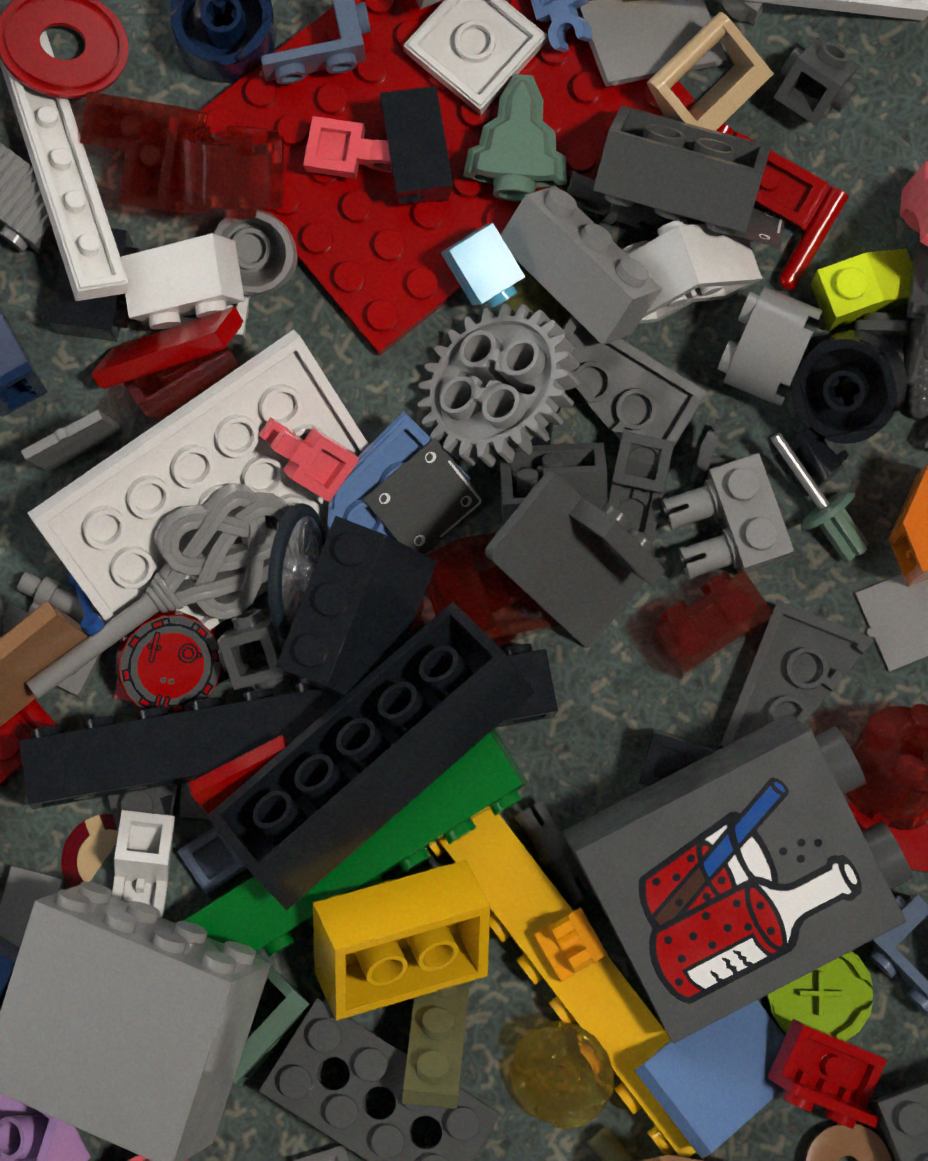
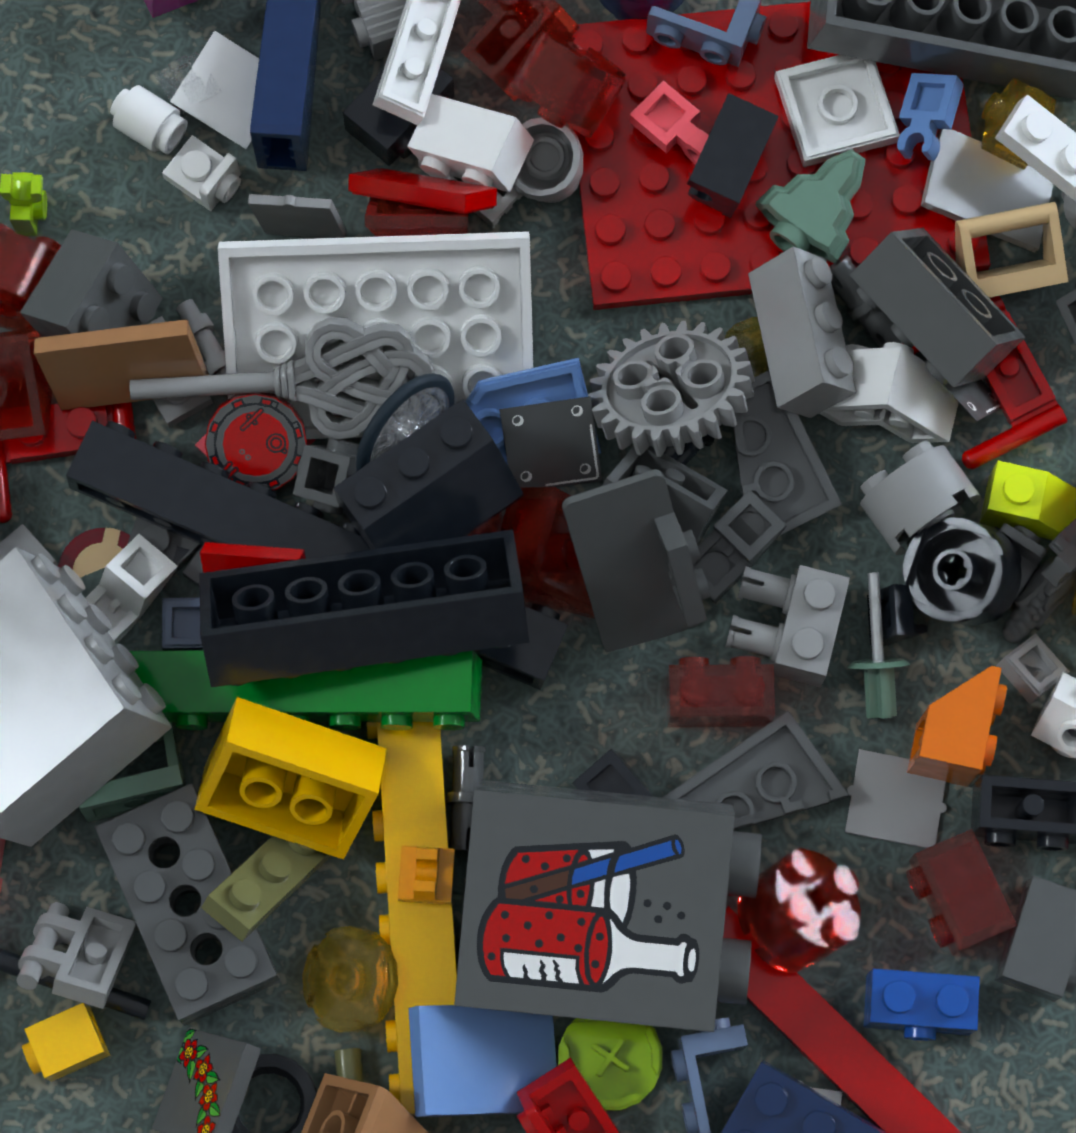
camera: 30 degrees right, 5 degrees down
(92, 622) = (215, 366): blue hinge -> none
(314, 462) = (477, 350): coral plate -> none
(484, 266) = (723, 286): brick -> none
(706, 453) = (810, 551): dark grey piece -> none

